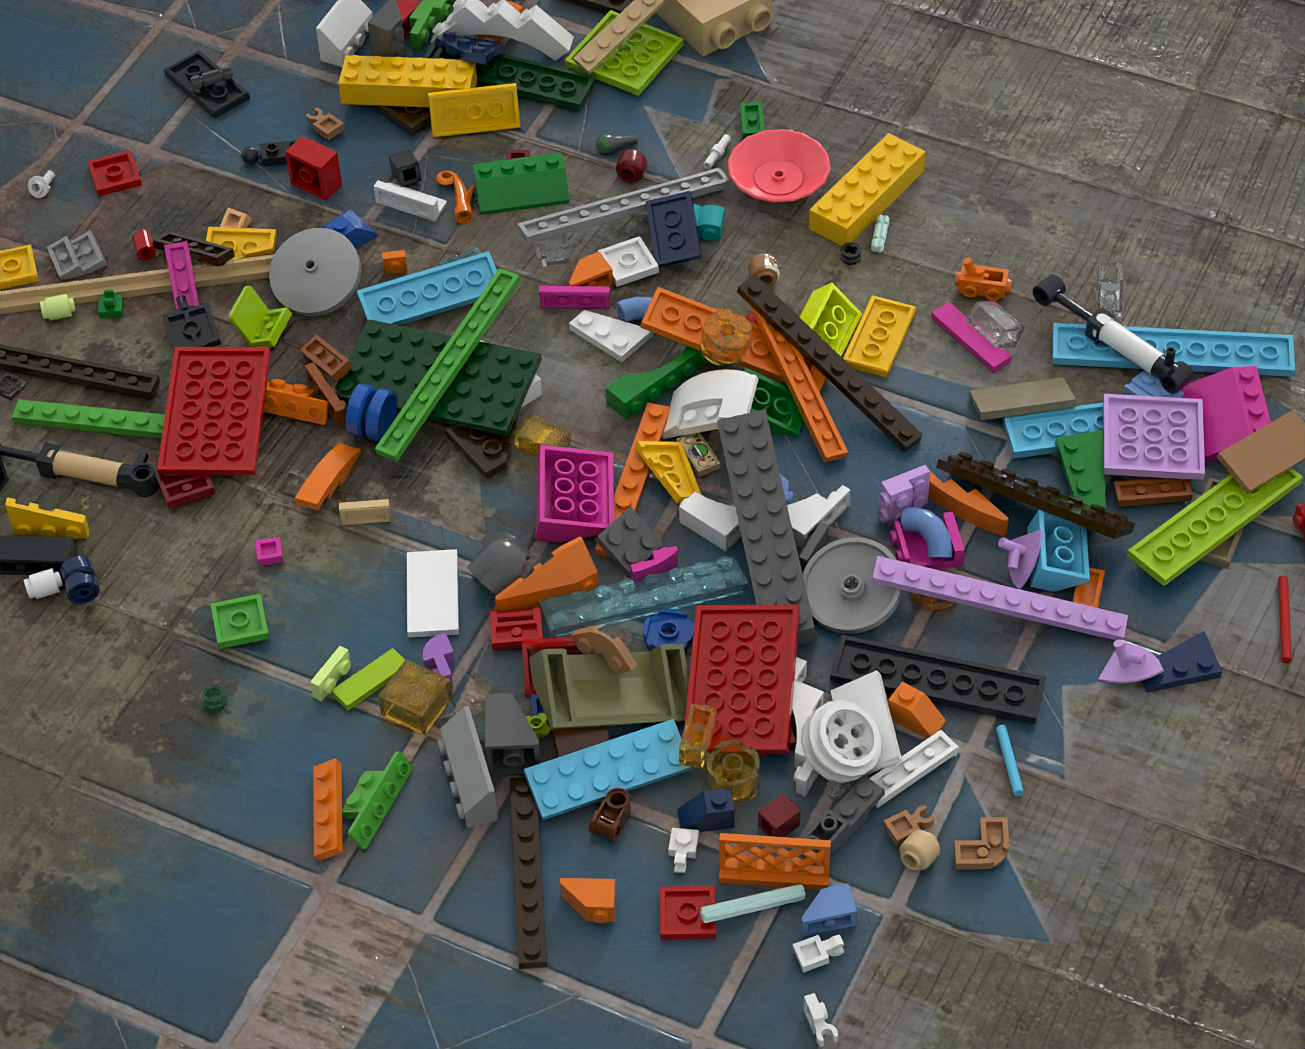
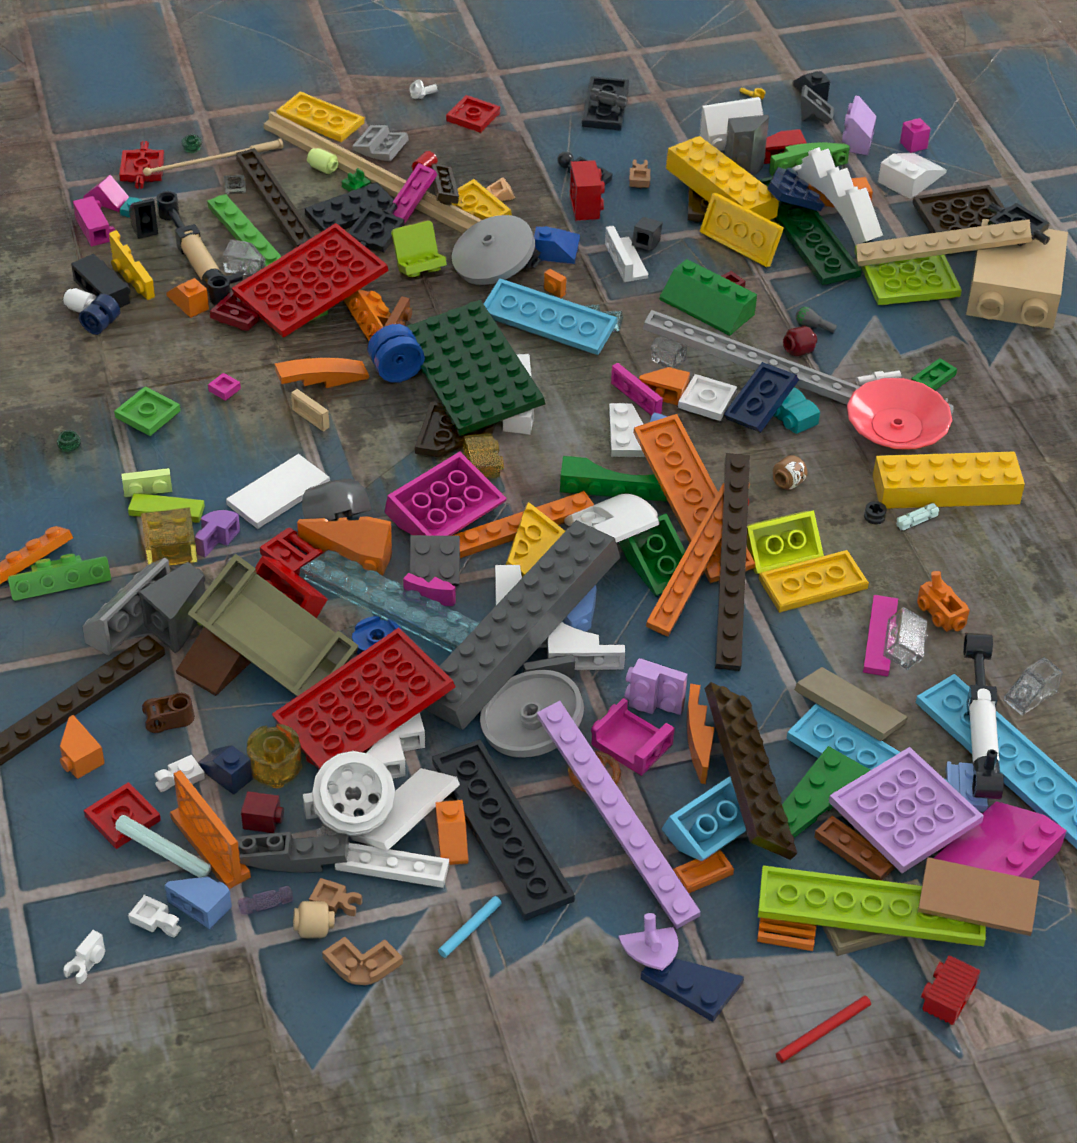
camera: 45 degrees right, 5 degrees down
(124, 438) = (242, 258): none -> clear slope
(125, 505) = (190, 297): none -> orange slope
(139, 330) = (348, 207): none -> black plate
(326, 358) = (423, 304): dark orange plate -> none
(447, 365) = (478, 357): bright green plate -> none
(463, 209) = (647, 286): orange plant -> none
(593, 641) = (294, 588): medium nougat plate -> none
(593, 771) = (207, 680): medium azure plate -> none
(697, 735) = (276, 705): clear yellow brick -> none
(725, 337) = (675, 481): clear yellow brick -> none
(866, 870) = (265, 900): none -> clear purple axle
(931, 528) = (639, 725): medium blue cylinder -> none
(1022, 555) = (677, 790): lavender shield -> none
(1189, 574) = (787, 930): none -> orange tile

